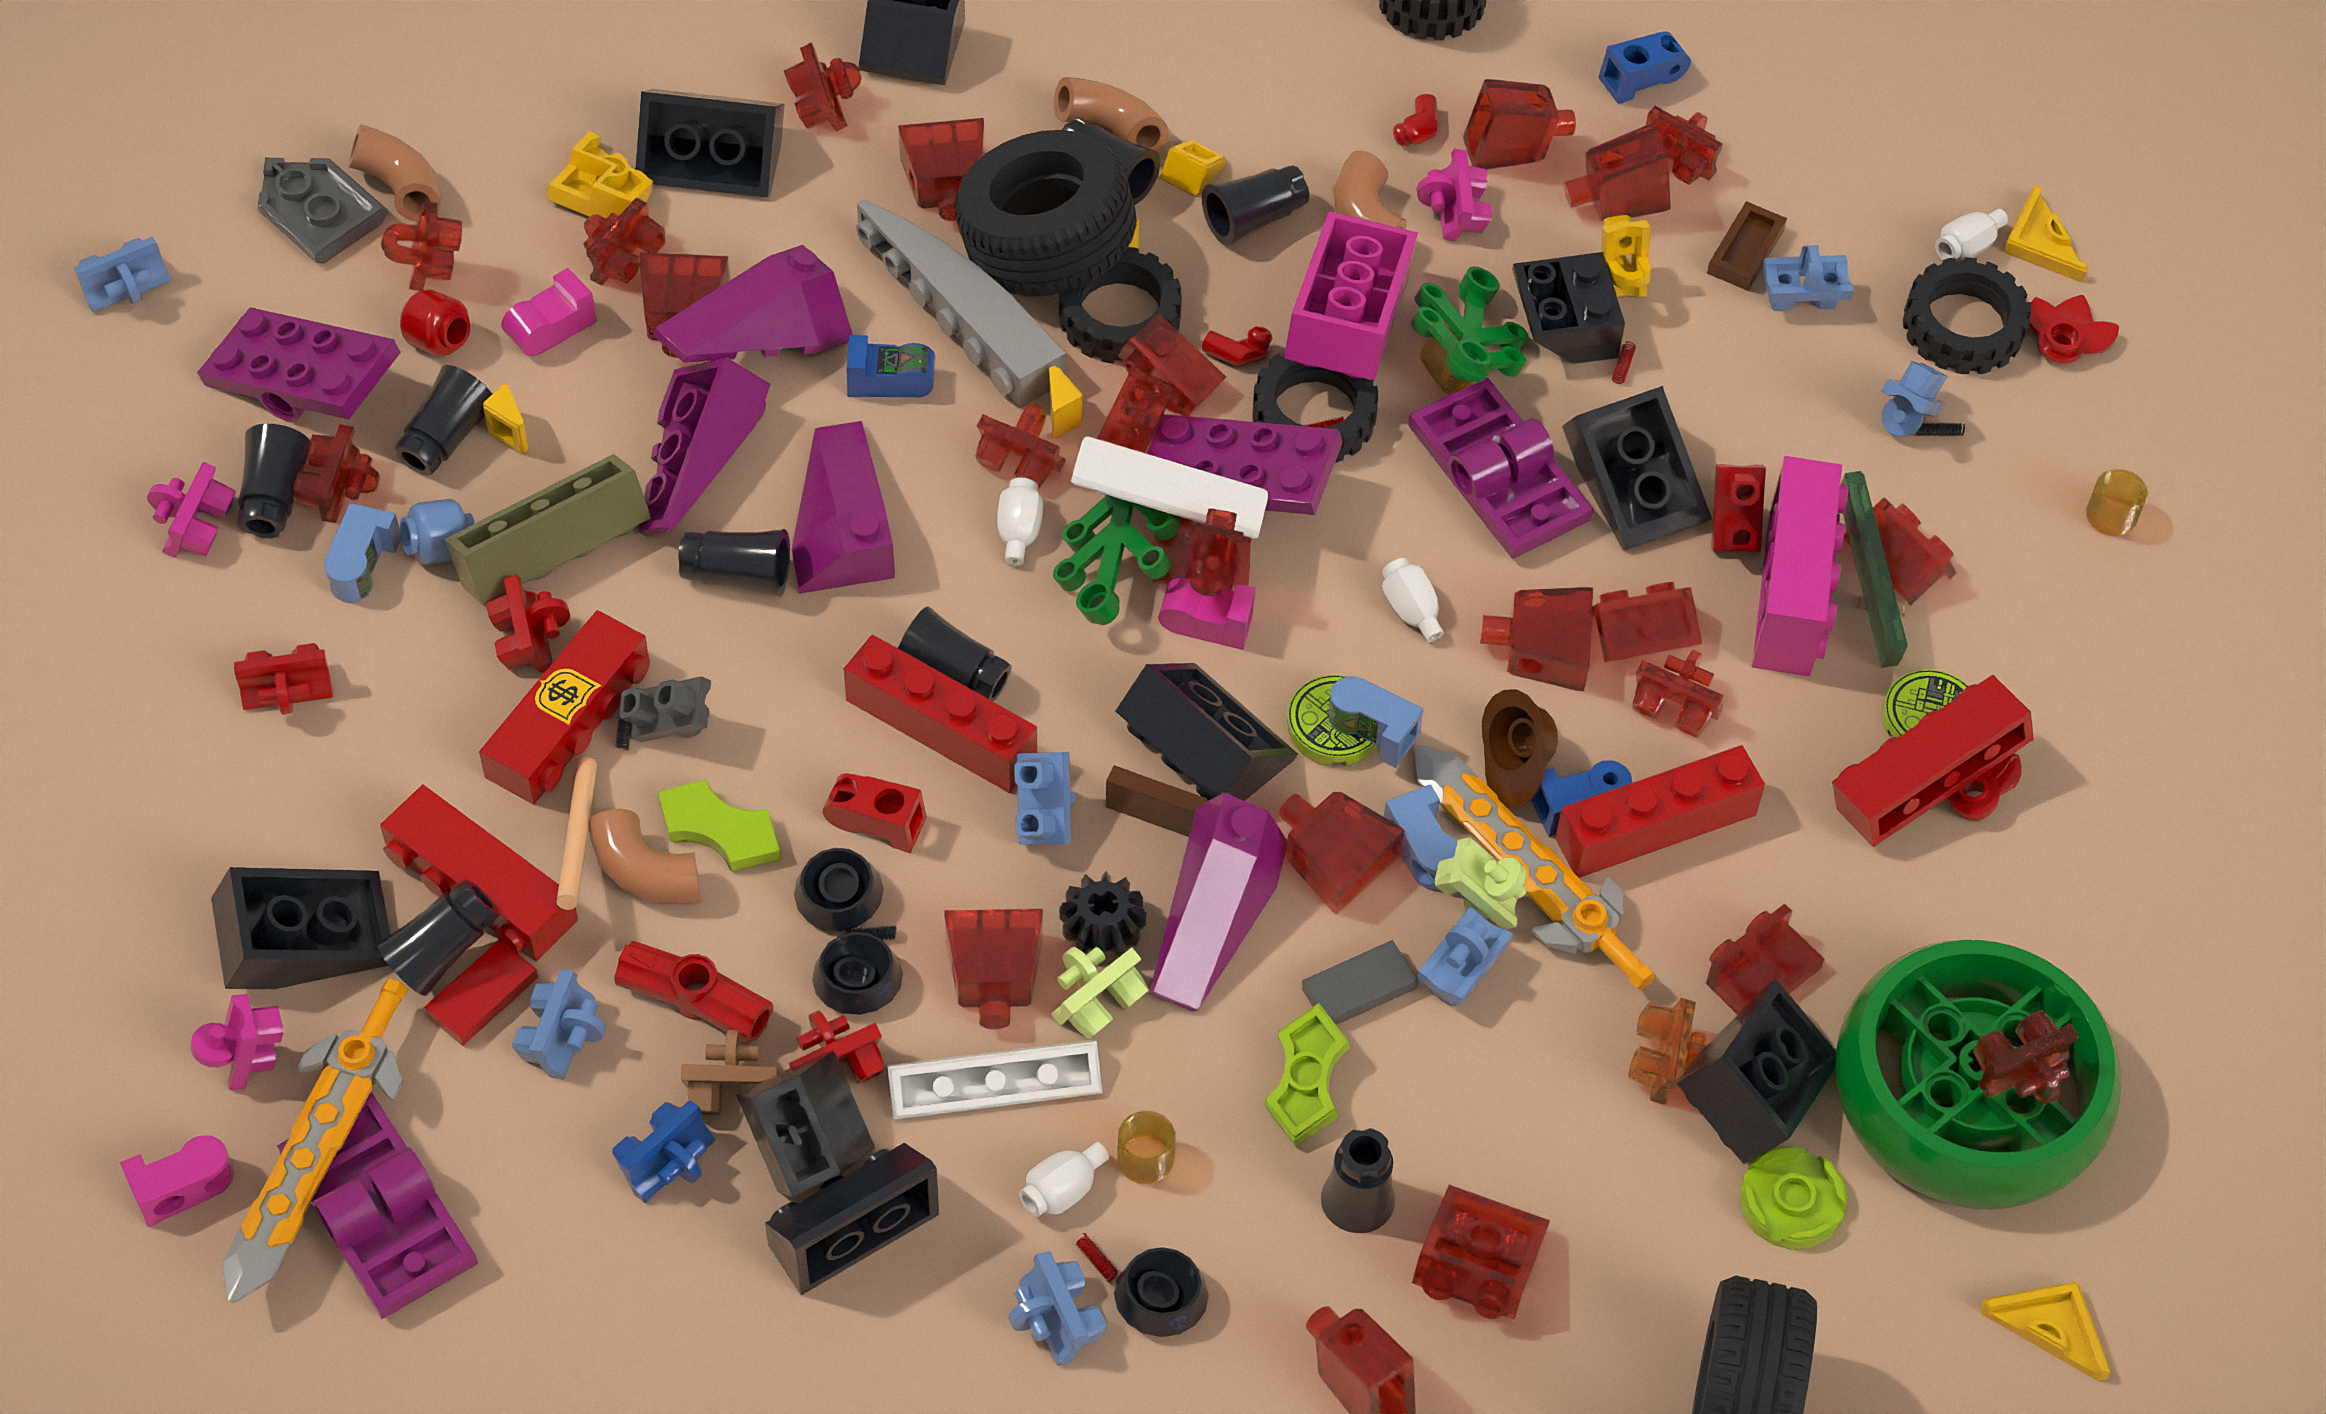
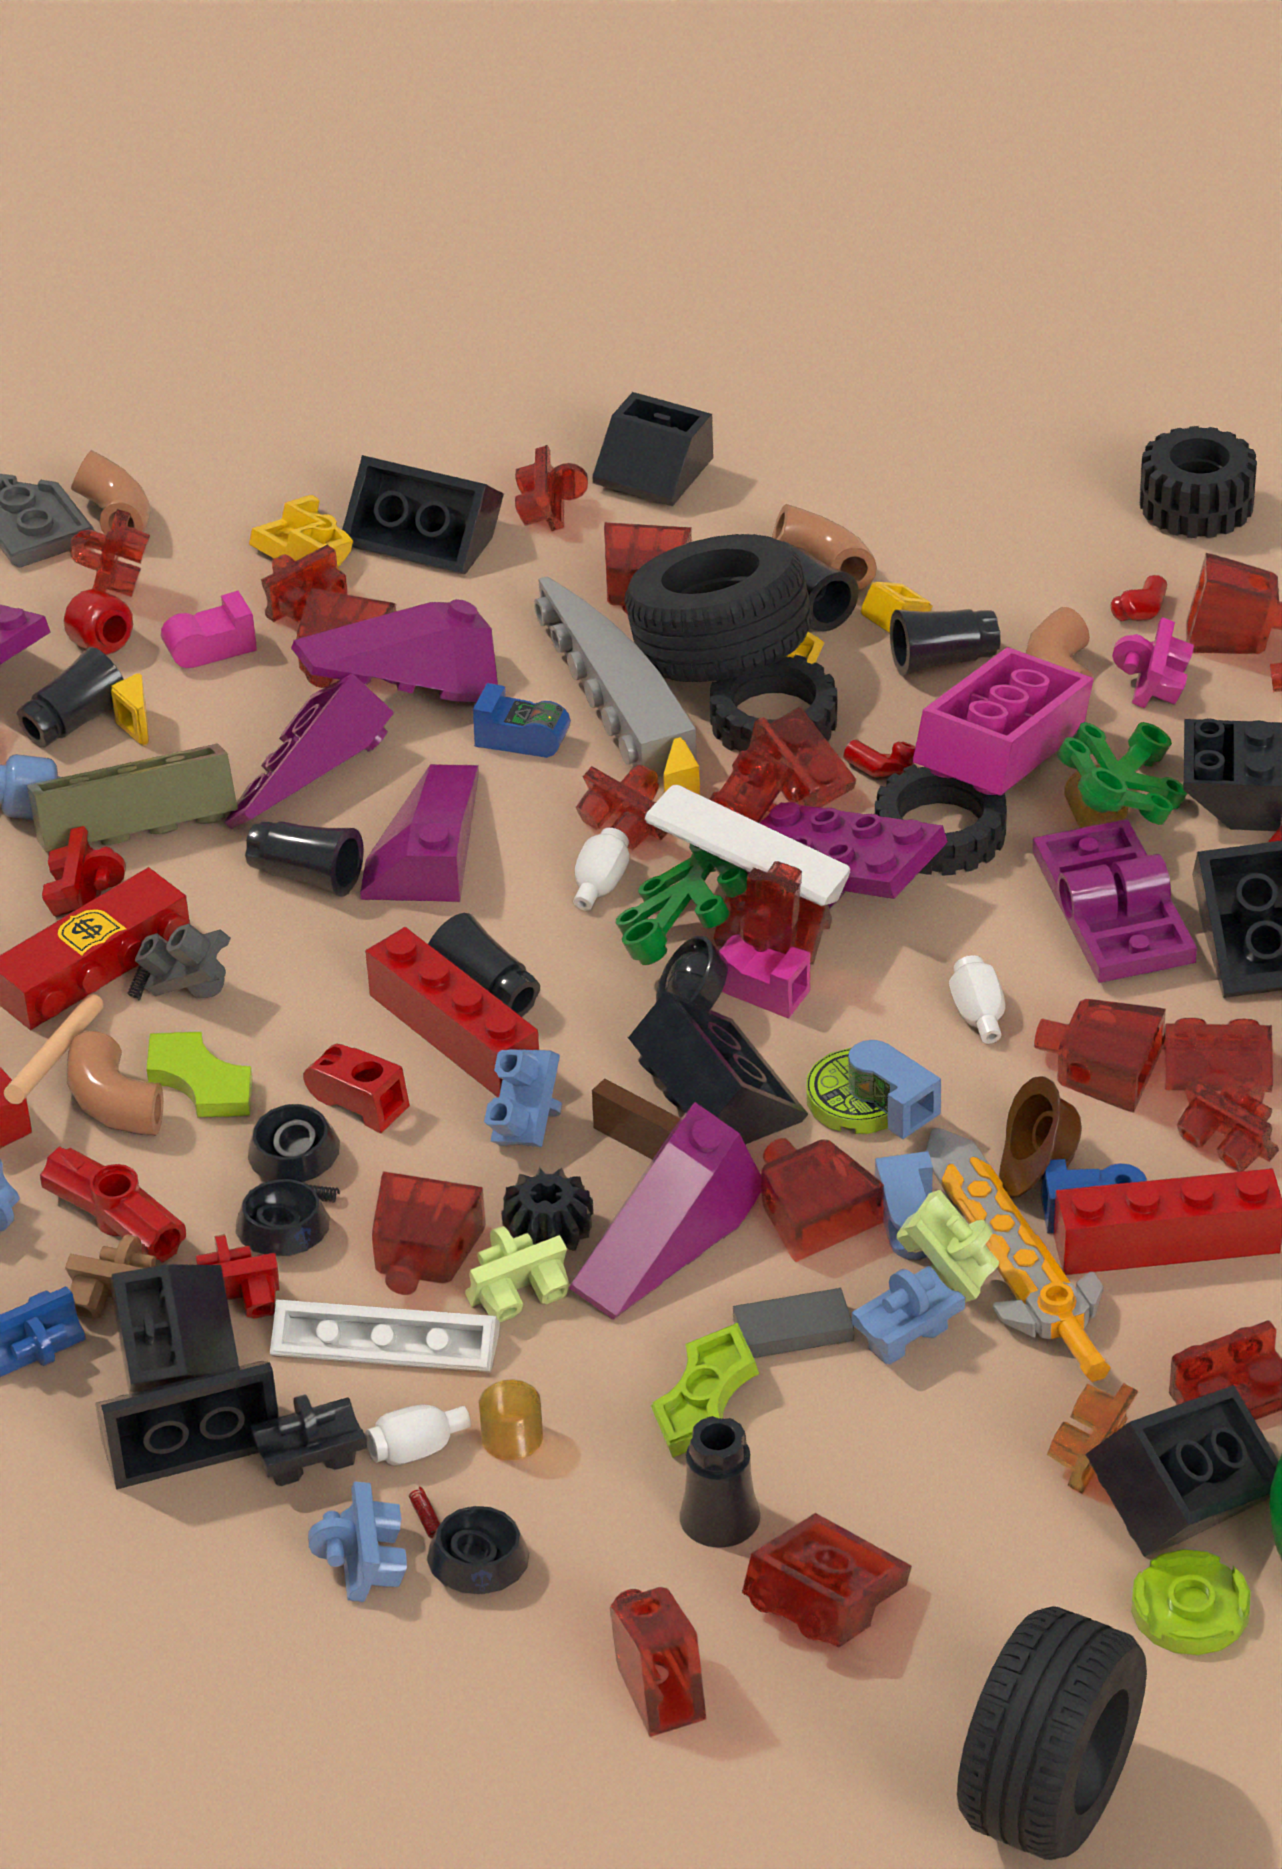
camera: 20 degrees right, 15 degrees down
(970, 1210) = (308, 1437): none -> black hips
(1151, 633) = (695, 972): none -> black hat

